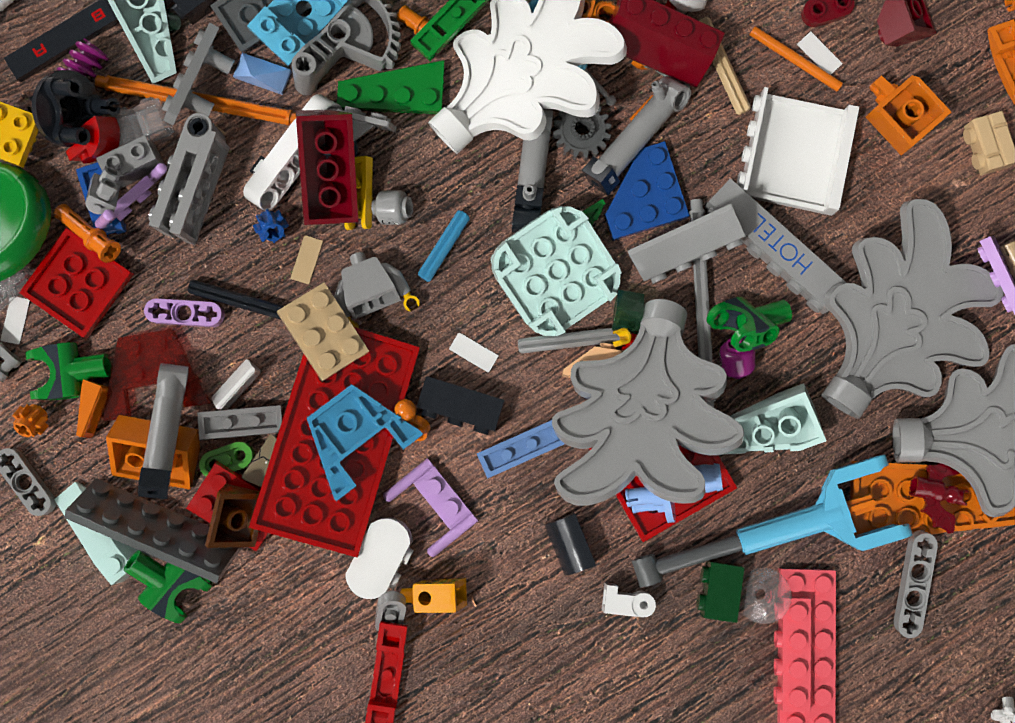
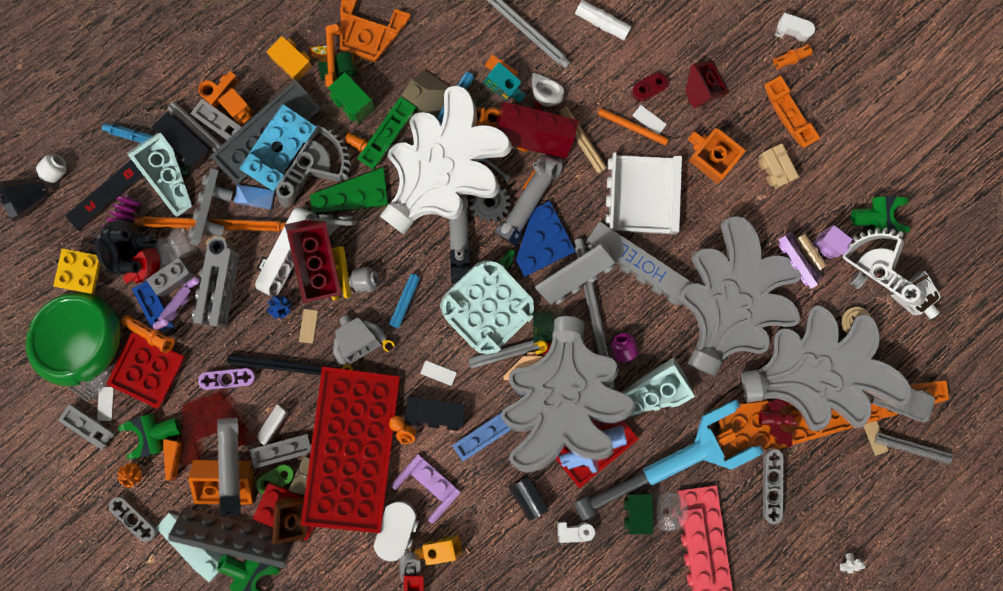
camera: 20 degrees left, 0 degrees up
(103, 191) = (157, 303): light grey hips -> none
(322, 331) = (329, 378): tan plate -> none
(347, 424) = (357, 441): dark azure wing -> none
(752, 323) = (631, 322): green connector -> none

